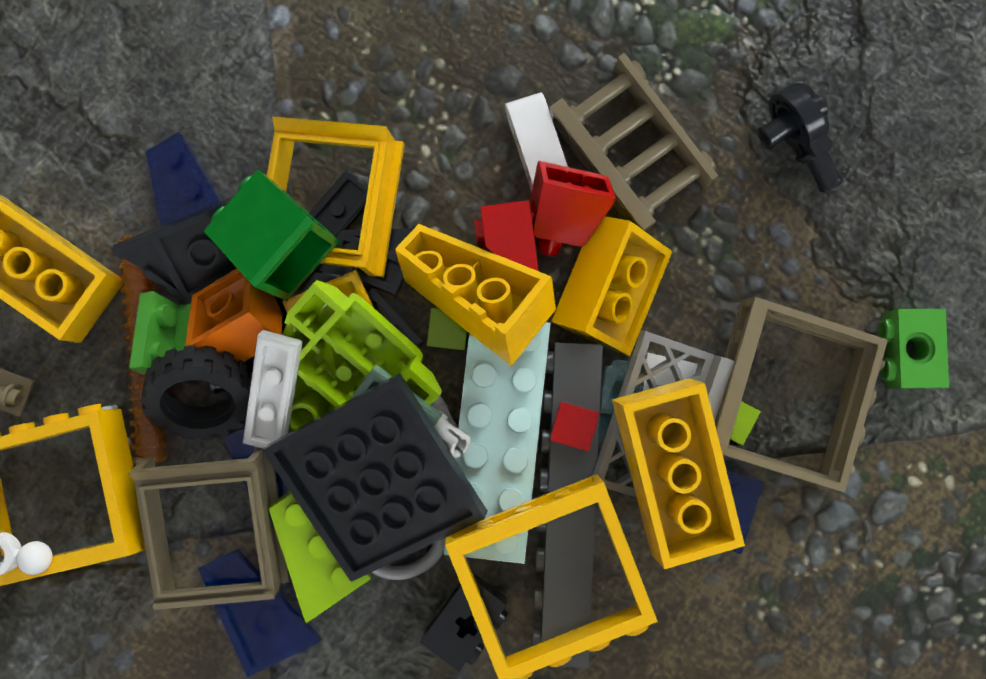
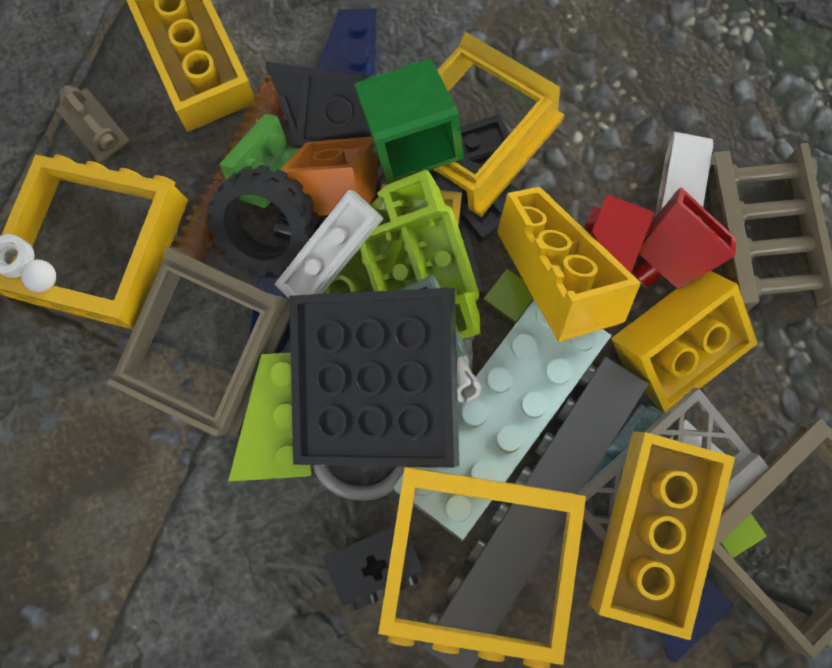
camera: 30 degrees right, 10 degrees down
(262, 629) = (187, 460): clear blue wing -> none
(574, 426) = (581, 440): red tile -> none

